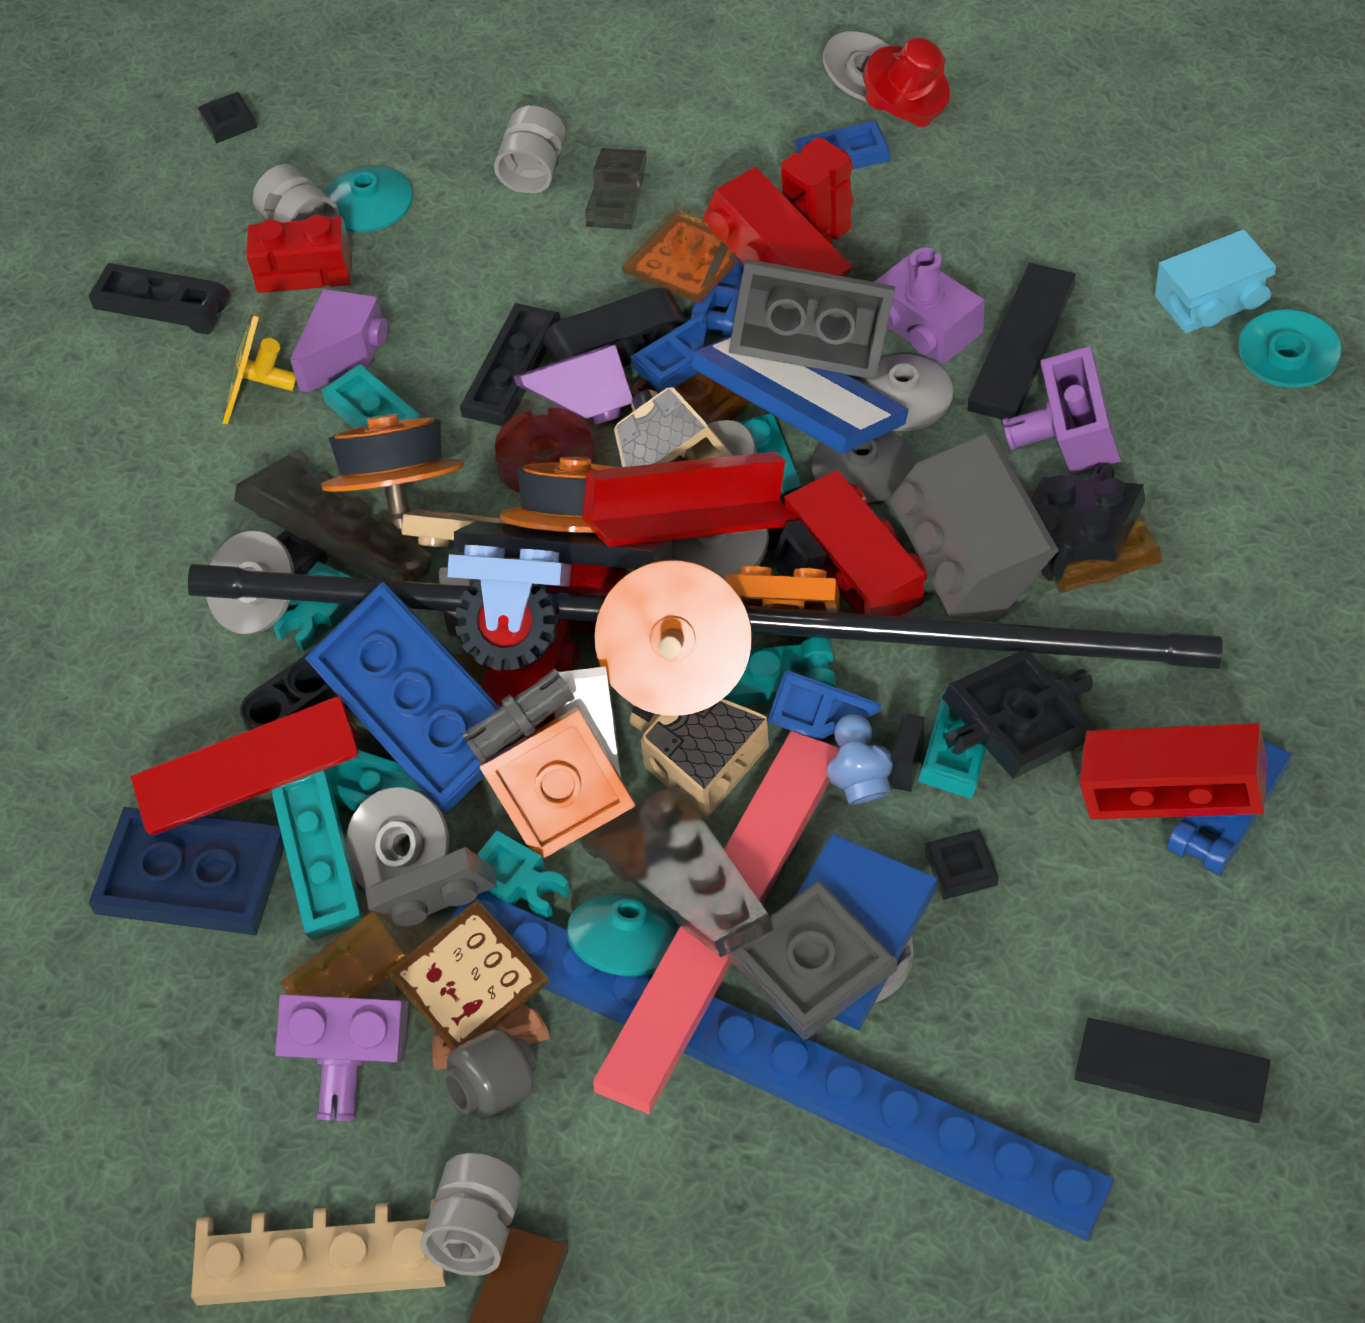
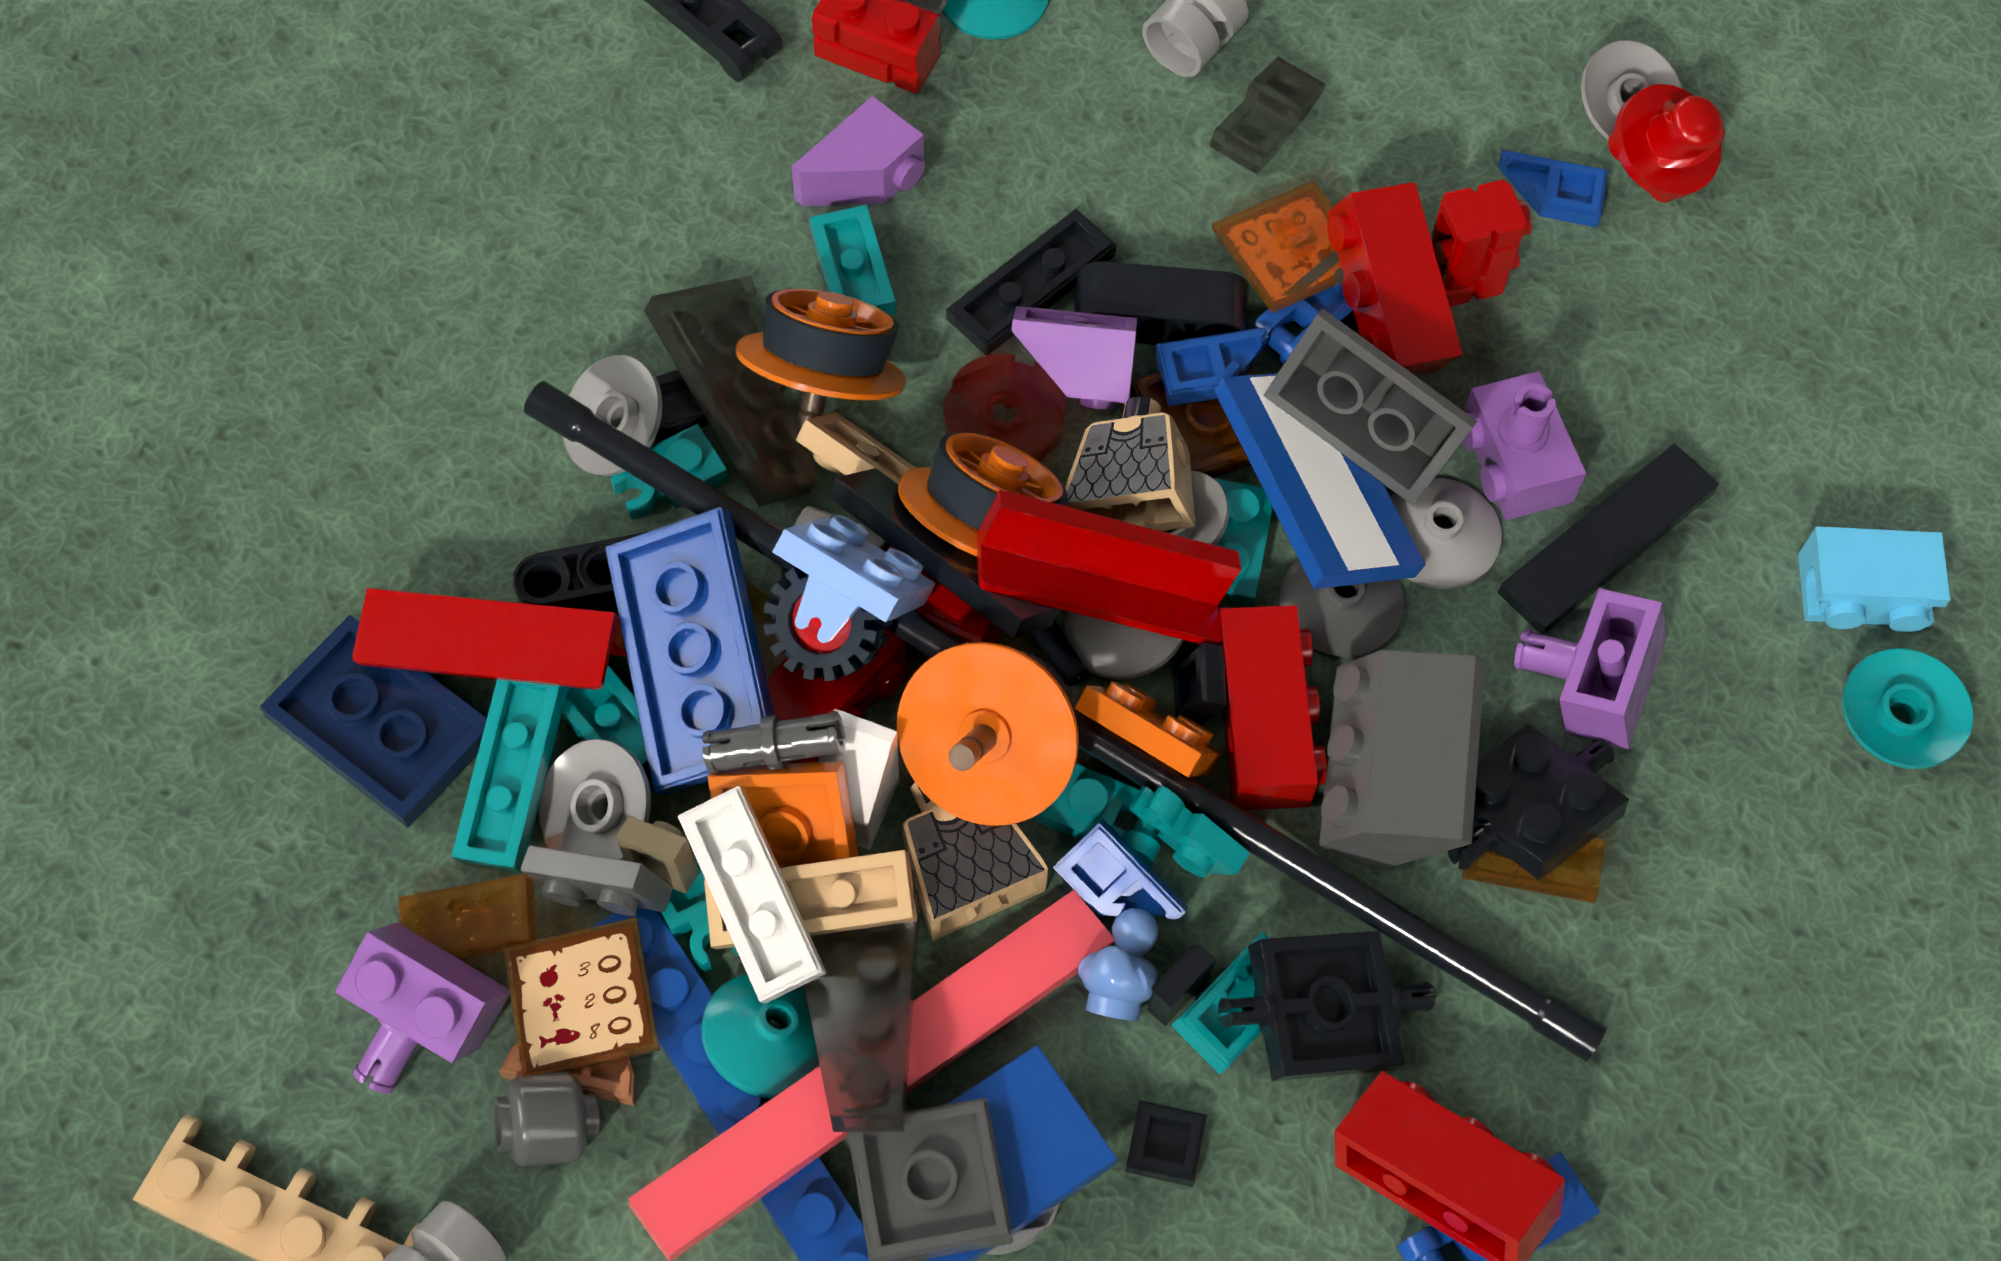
camera: 20 degrees right, 10 degrees up
(260, 370) = (759, 159): yellow shield -> none
(474, 833) = (660, 849): none -> dark tan plate
(561, 830) = (752, 895): none -> white tile
(605, 817) = (840, 895): none -> tan plate
(860, 651) = (1197, 841): none -> teal plate

